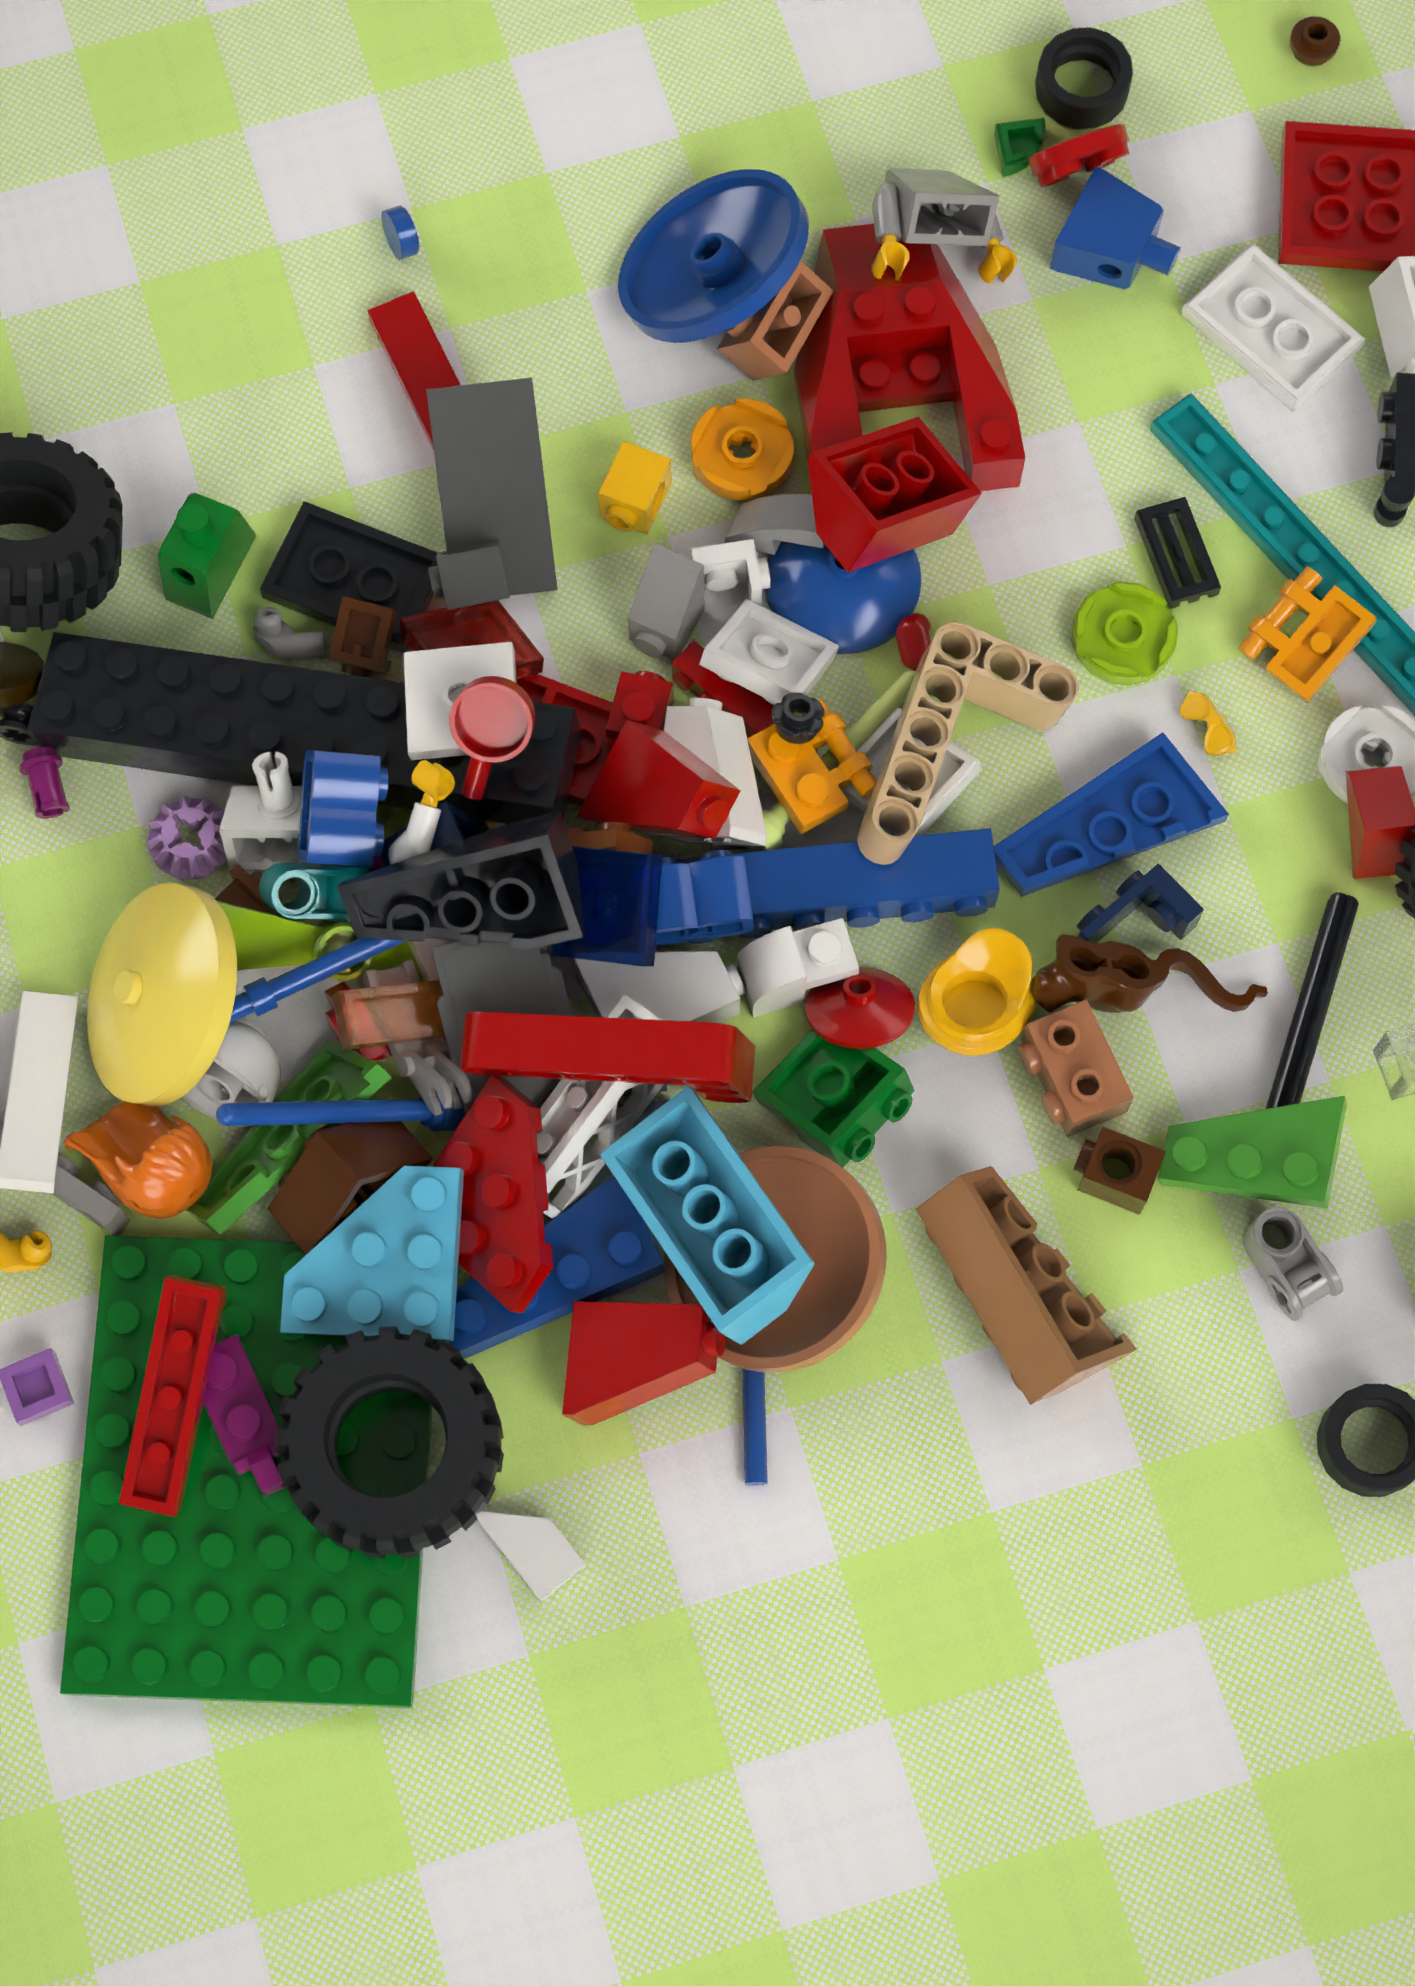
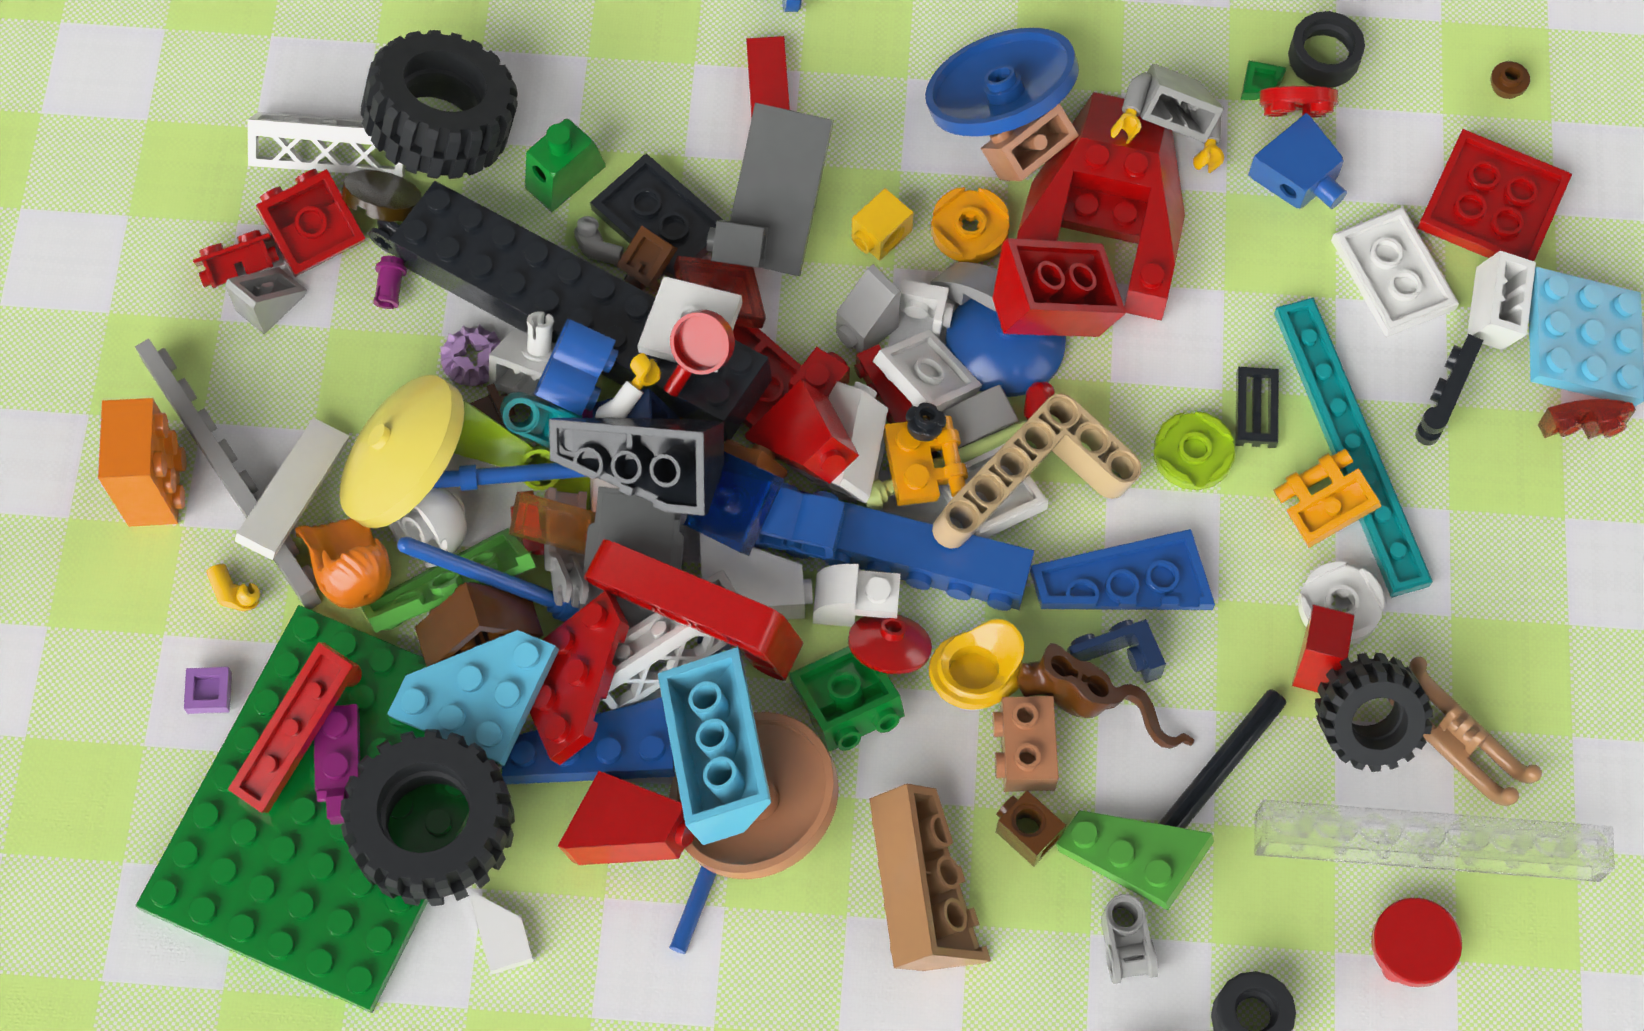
camera: 20 degrees right, 5 degrees down
(855, 683) = (981, 415): none -> light grey slope
(1219, 736) = (1232, 548): yellow piece -> none

